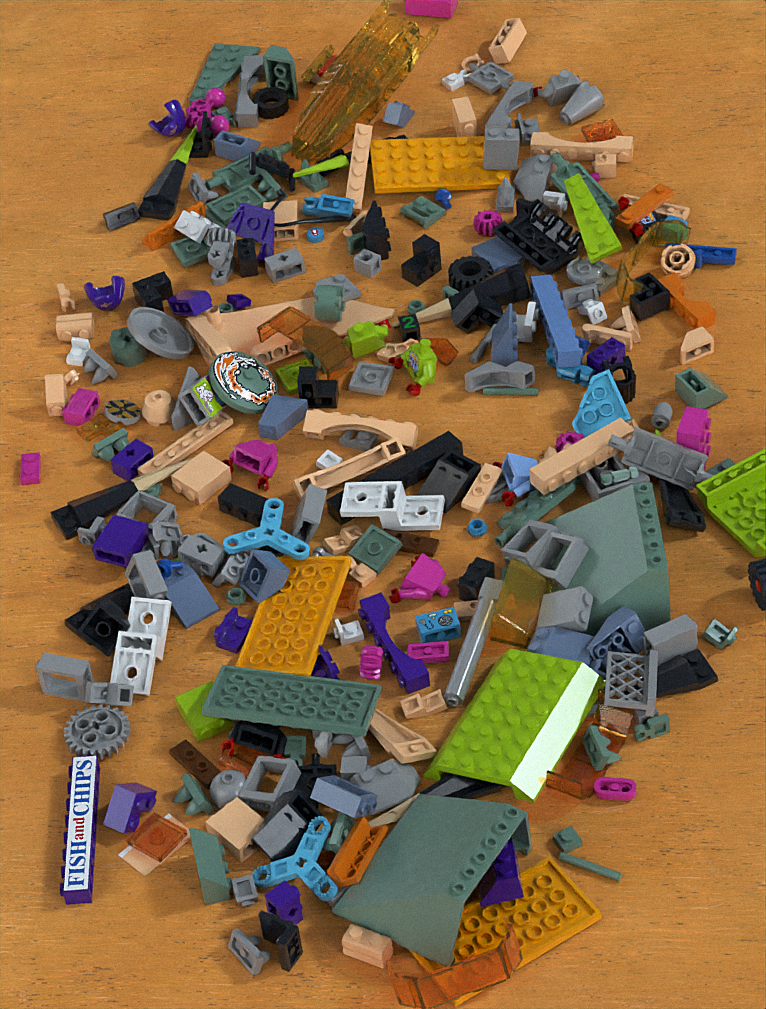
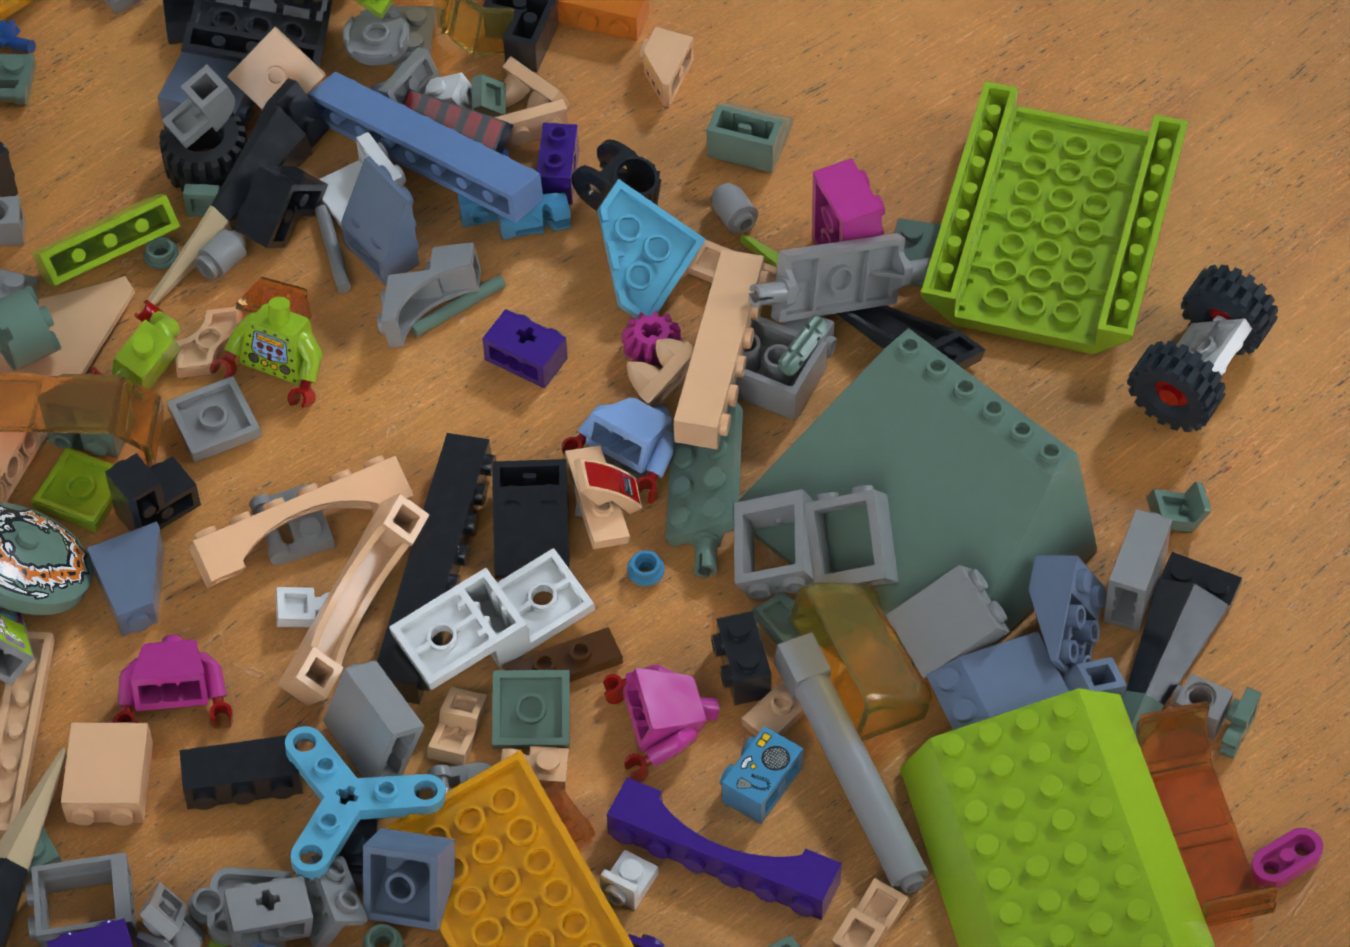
camera: 45 degrees left, 10 degrees up
(371, 662) = (732, 908): dark pink gear -> none
(397, 289) = (105, 239): none -> lime brick
(409, 327) = (190, 295): black brick -> none
(425, 261) = (100, 165): black brick -> none
(429, 652) = (791, 827): dark pink plate -> none
(437, 320) = (220, 254): none -> light grey brick
(476, 255) = (207, 106): none -> light grey brick
(485, 480) = (606, 482): none -> slope
(486, 221) = (131, 40): dark pink gear -> none
(518, 420) = (525, 348): none -> dark purple brick
(526, 254) = (271, 65): none -> light nougat plate
(579, 319) = (470, 123): none -> tile
(595, 746) = (1205, 812): sand green tile -> none
(606, 317) = (488, 96): none -> sand green plate
(647, 681) = (1189, 652): light grey fence -> none

